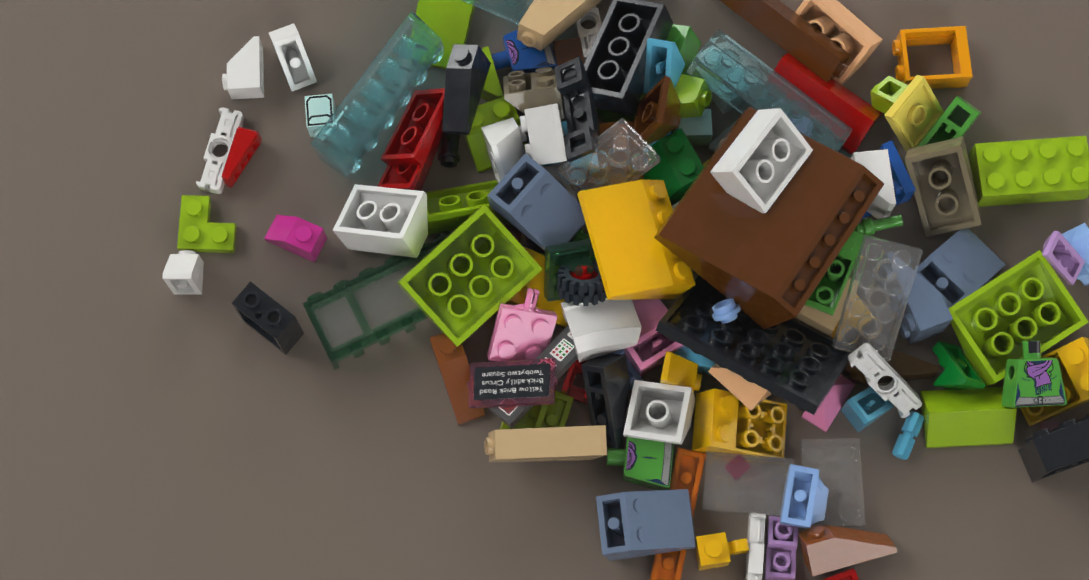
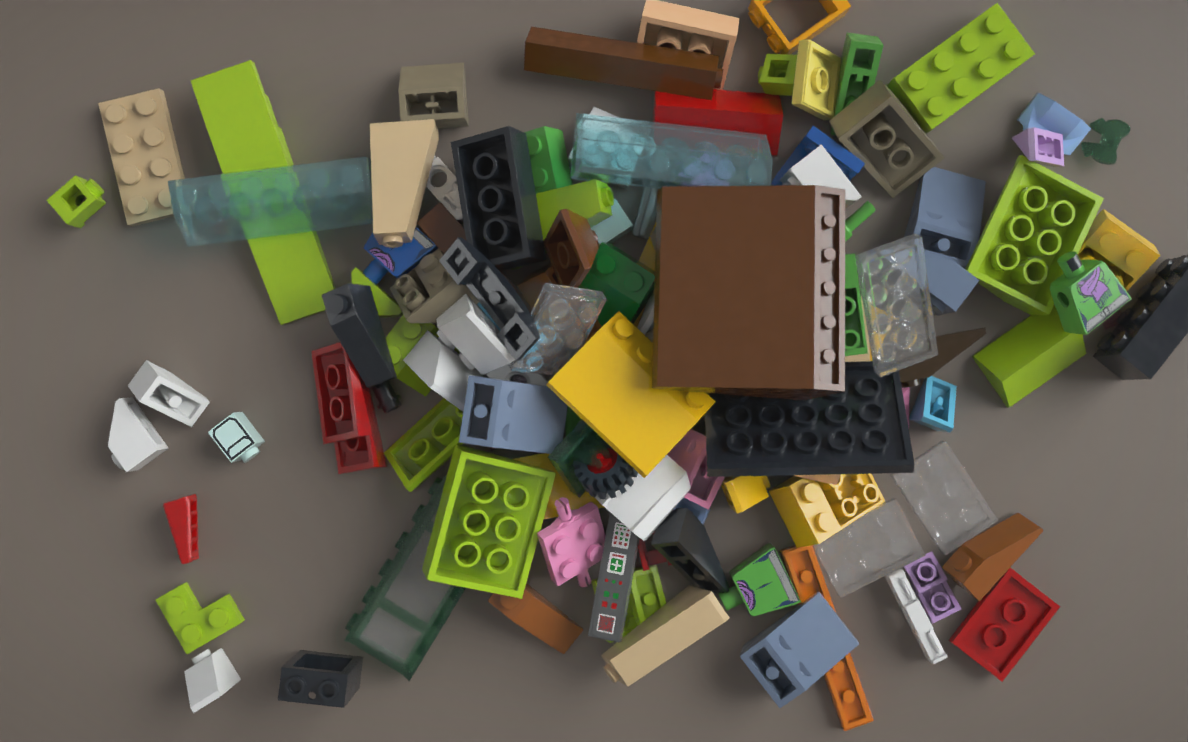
camera: 35 degrees left, 15 degrees up
(211, 177) = (152, 500): white piece -> none
(297, 236) = (294, 572): dark pink slope -> none
(378, 96) = (280, 388): clear light blue slope -> none
(384, 221) = (369, 512): white slope -> none
(512, 383) = (595, 598): piece -> none
(659, 412) = (750, 540): white slope -> none
(661, 60) = (546, 192): medium azure slope -> none
(715, 551) = (875, 630): yellow brick -> none
(725, 311) = (761, 411): light blue plate -> none
(737, 466) = (849, 539): clear pink window -> none
(762, 159) = (713, 244): white slope -> none
(803, 497) = (929, 536): light blue slope -> none
(874, 368) = (928, 370): white piece -> none
(906, 440) = (987, 415): medium azure piece -> none
(958, 371) = (1006, 320): green slope -> none

